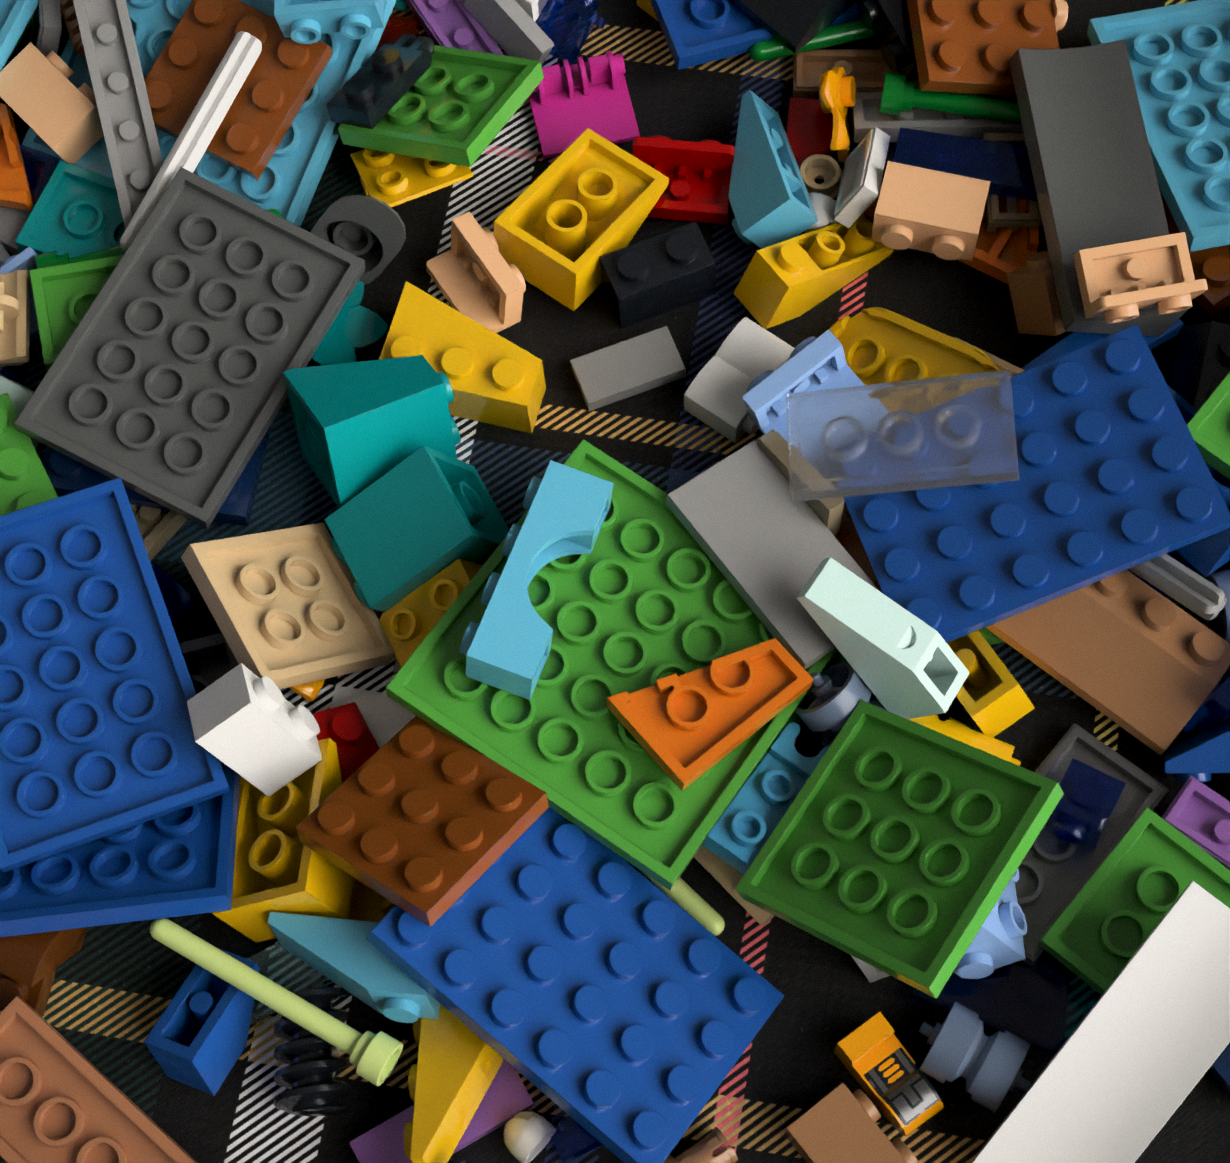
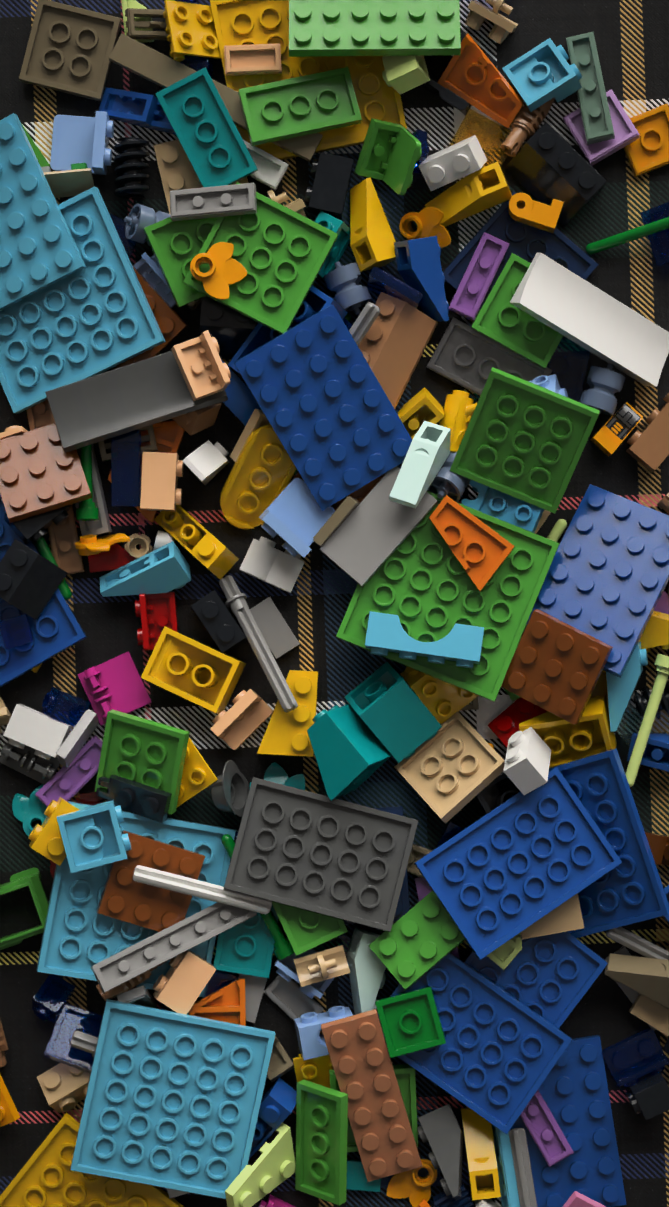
camera: 100 degrees left, 20 degrees up
(601, 321) = (240, 608): none -> light grey axle
(861, 177) = (141, 522): white tile -> none
(902, 436) = (313, 472): clear tile -> none
(951, 291) = (207, 461): none -> white slope
(1085, 806) = (472, 357): clear blue bracket -> none

